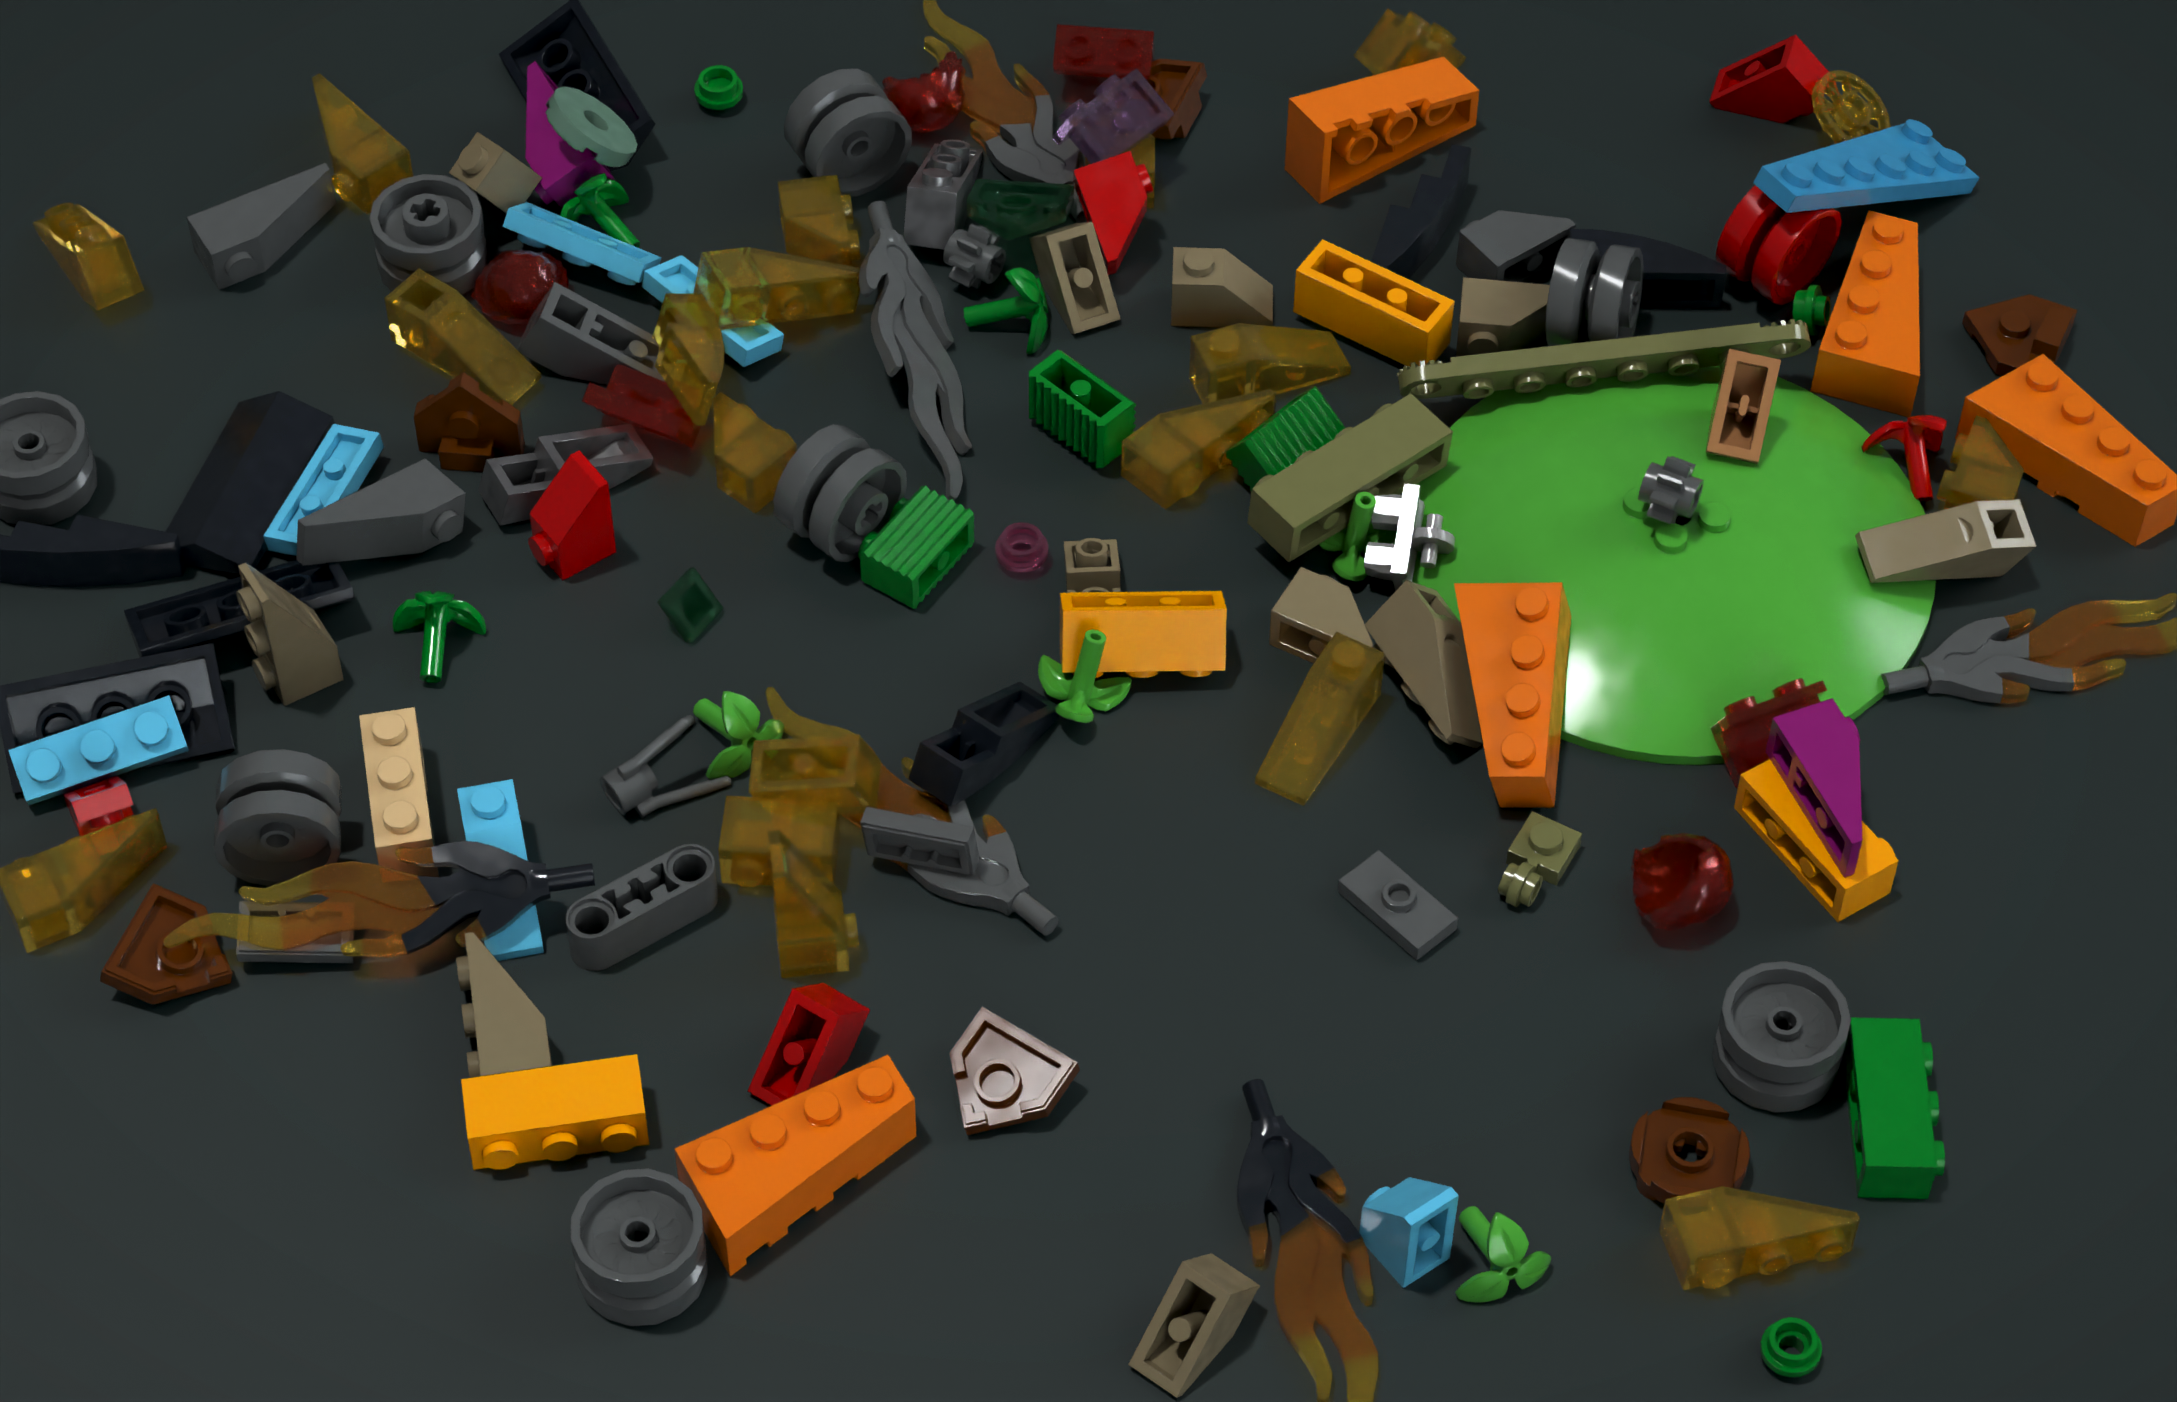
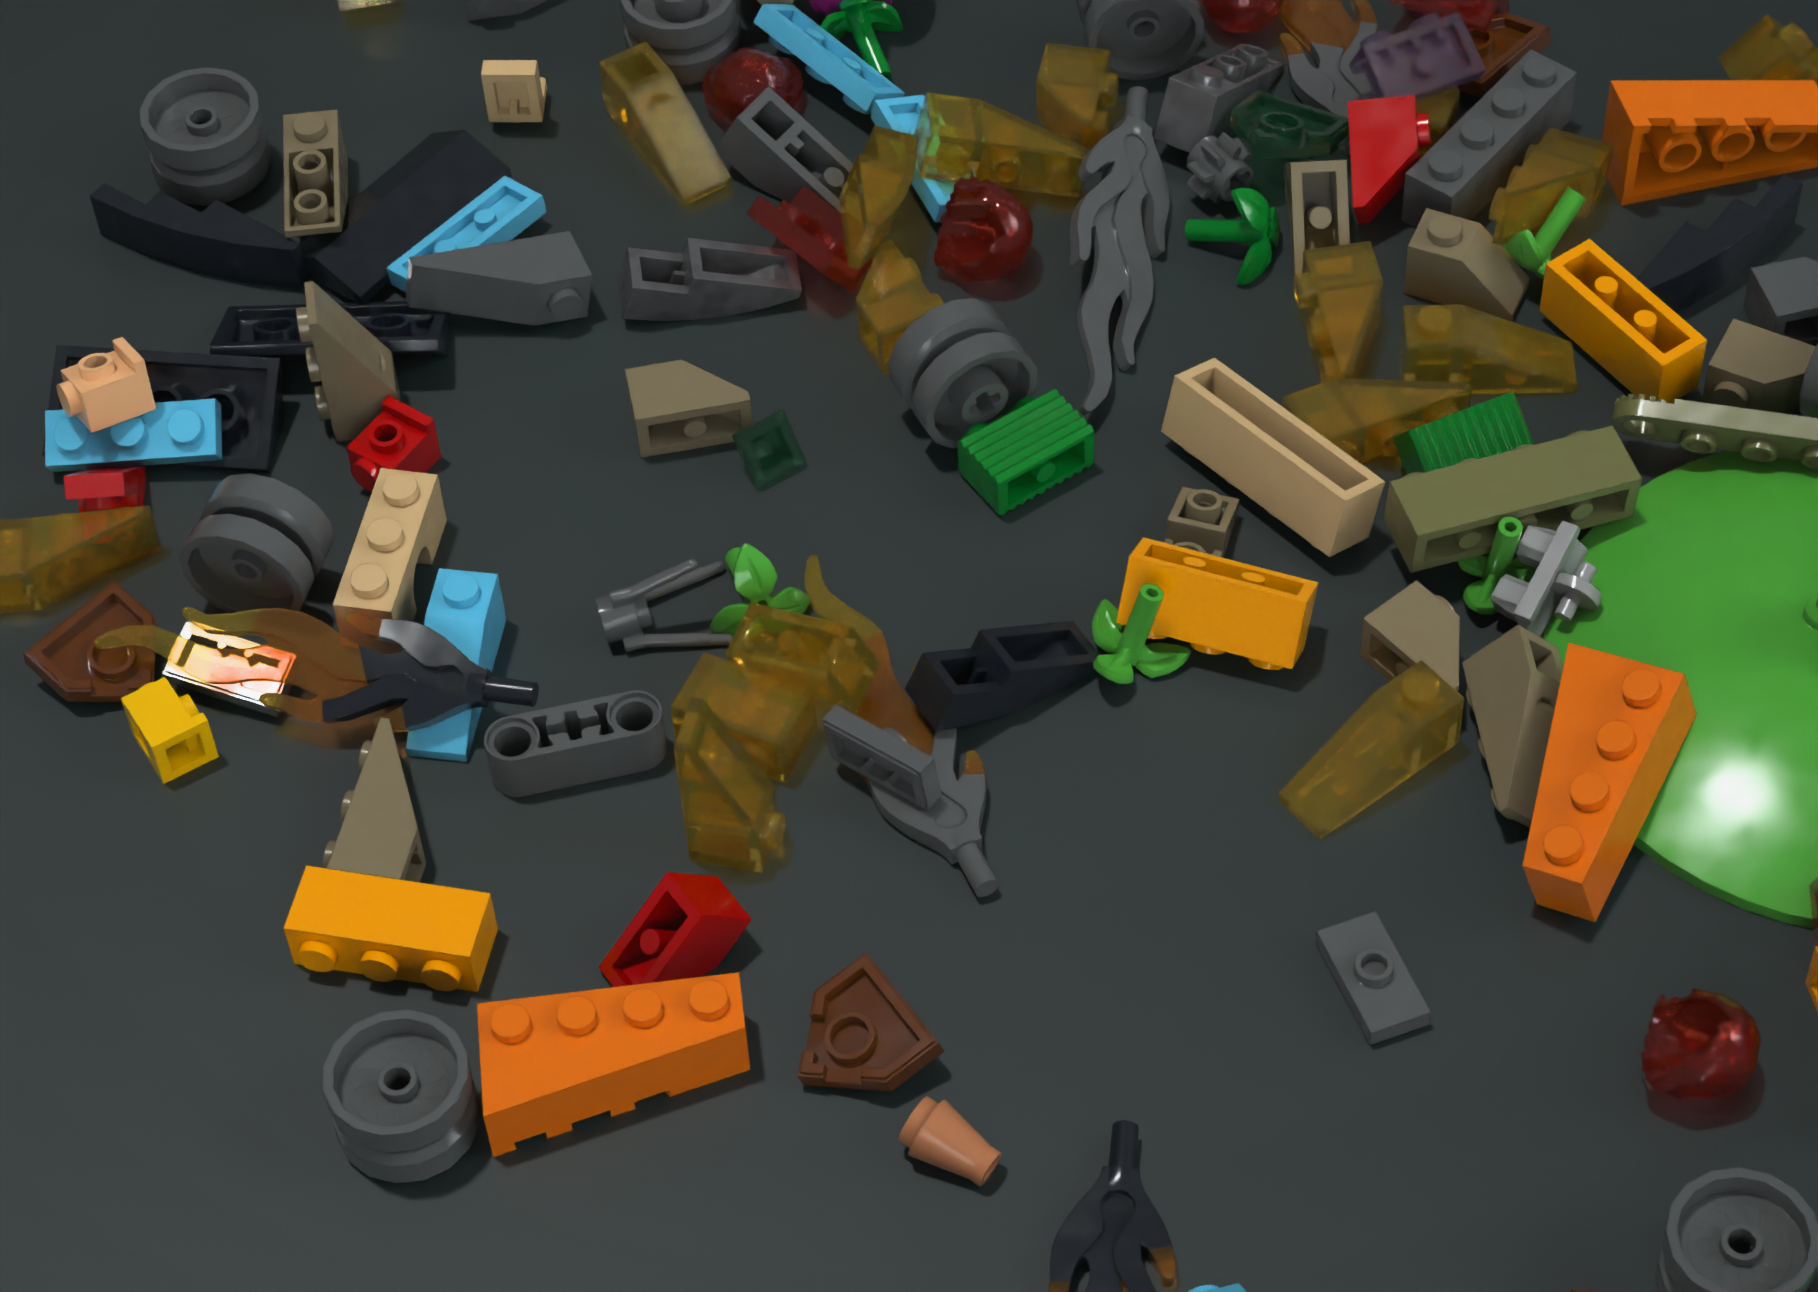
camera: 25 degrees right, 0 degrees up
(69, 711) = (107, 387): none -> light nougat brick
(156, 468) = (314, 173): none -> dark tan slope
(265, 1001) = (169, 729): none -> yellow brick
(306, 344) = (513, 90): none -> tan bracket
(348, 689) = (394, 440): none -> red brick
(436, 611) = (511, 387): green plant -> none
(467, 426) = (630, 210): reddish brown plate -> none
(573, 519) = (686, 323): red slope -> none
(598, 589) = (683, 407): none -> dark tan slope
(794, 364) = (983, 232): none -> clear red hair
(1021, 548) = (1136, 482): clear pink plate -> none
(1080, 408) = (1256, 343): green brick -> none
(1116, 1142) = (948, 1141): none -> nougat cone
(1130, 348) = (1343, 303): none -> clear yellow slope
(1132, 495) = (1272, 457): none -> tan brick
(1195, 176) = (1489, 140): none -> dark grey brick
(1264, 200) = (1546, 172): none -> clear yellow slope
(1271, 259) = (1534, 252): none -> bright green plant
(1537, 854) = (1558, 965): olive plate -> none

